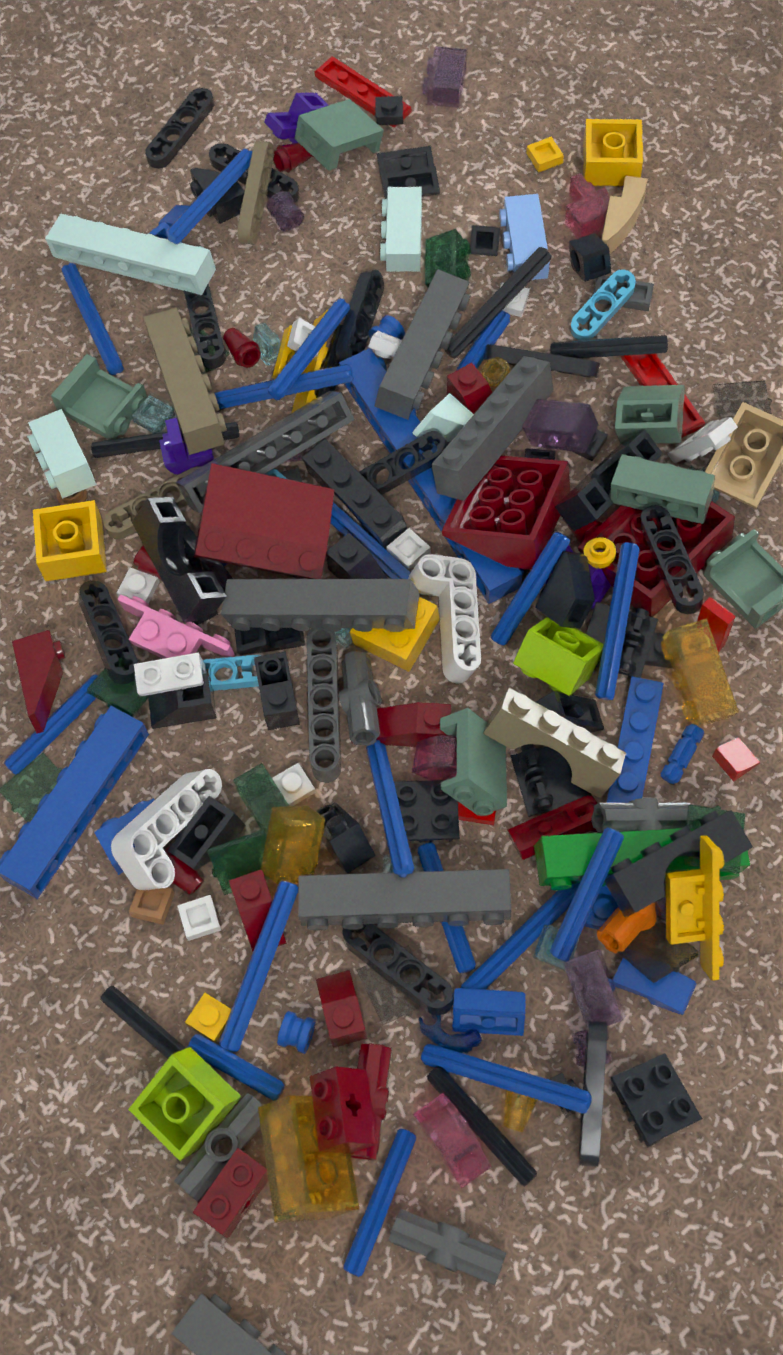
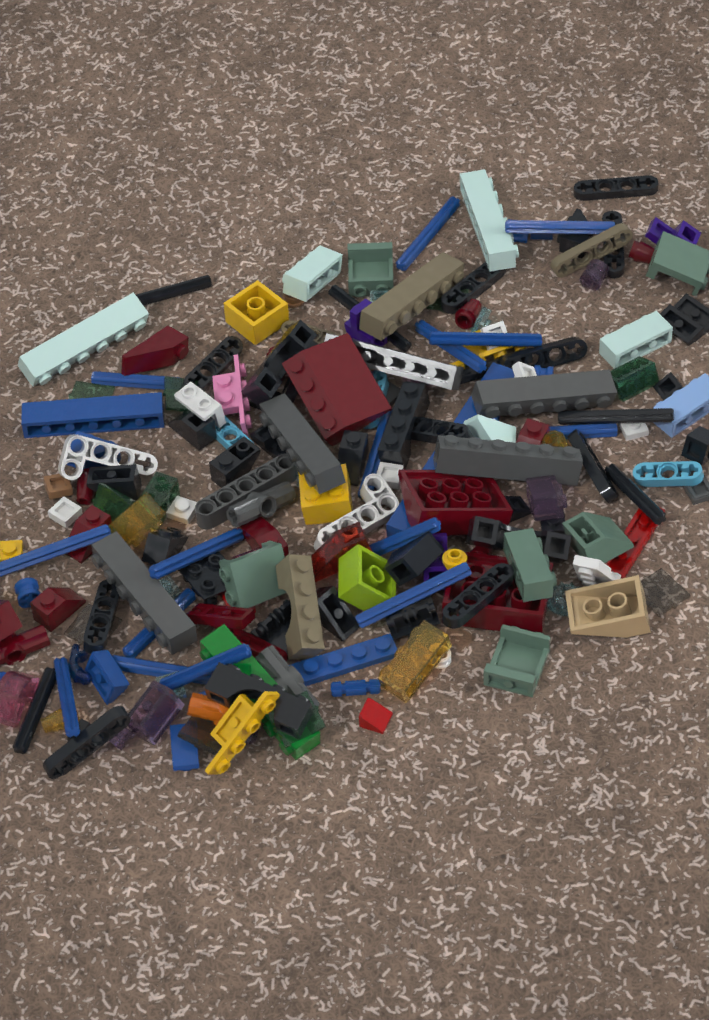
camera: 55 degrees right, 15 degrees down
(138, 584) = (253, 362): white plate -> none
(495, 663) = (326, 558): none -> clear red slope
(496, 834) = (217, 615): none -> dark red plate
(655, 1099) = (109, 783): black hinge -> none
(719, 621) = (455, 649): red tile -> none

